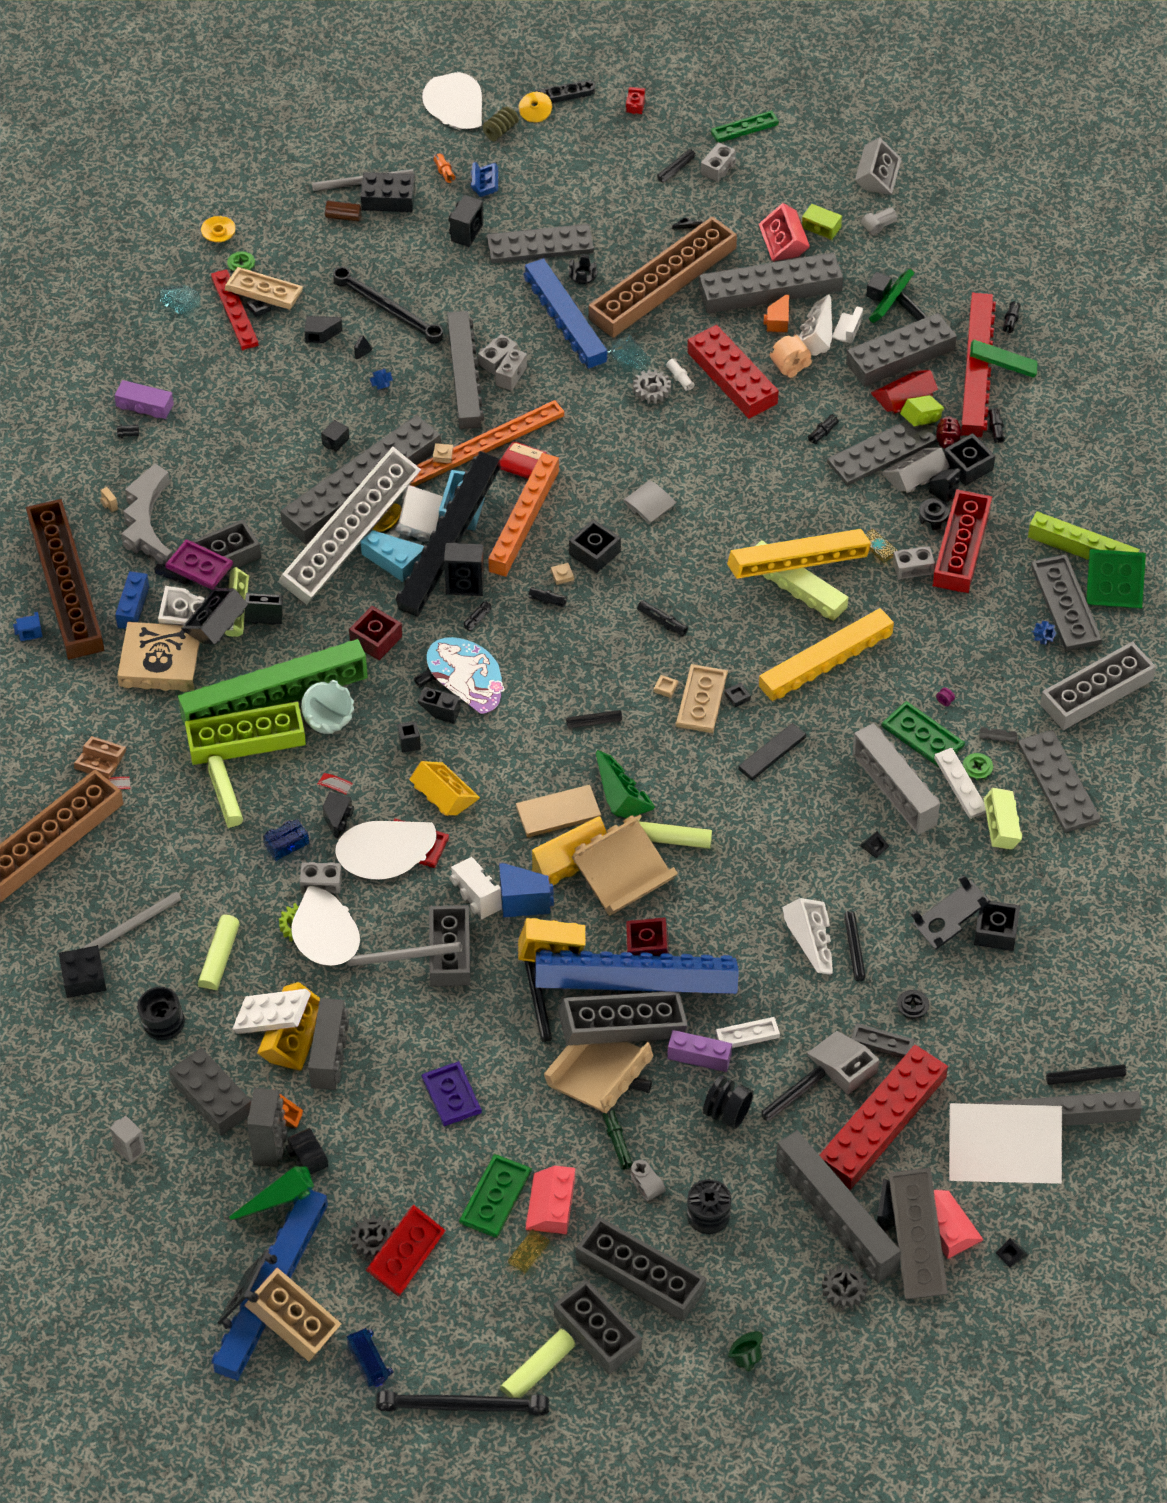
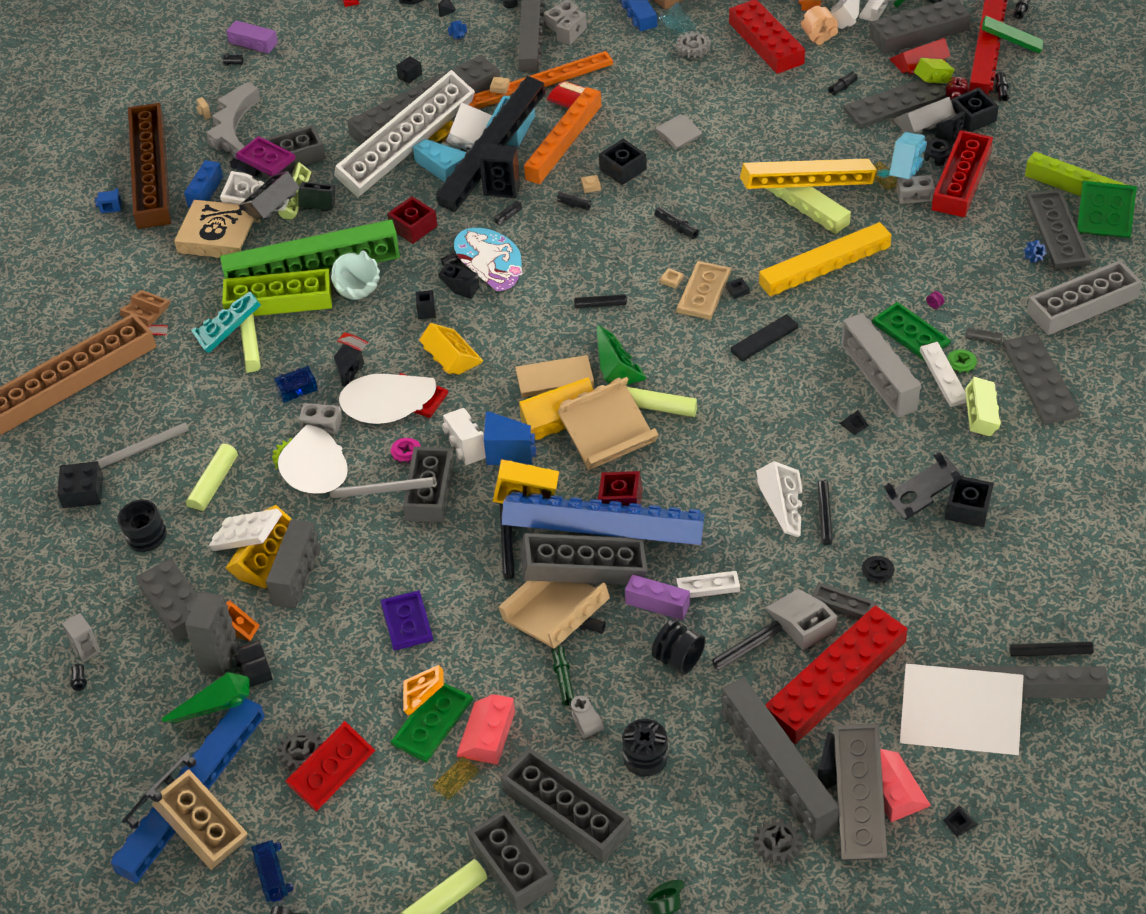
camera: 10 degrees right, 5 degrees down
(131, 1180) = (78, 681): none -> black pin
(189, 779) = (221, 326): none -> teal wing
(410, 903) = (400, 446): none -> dark pink gear
(481, 1164) = (421, 687): none -> light orange wing
(680, 374) = (719, 37): white pin -> none
(904, 525) = (907, 155): none -> medium azure brick

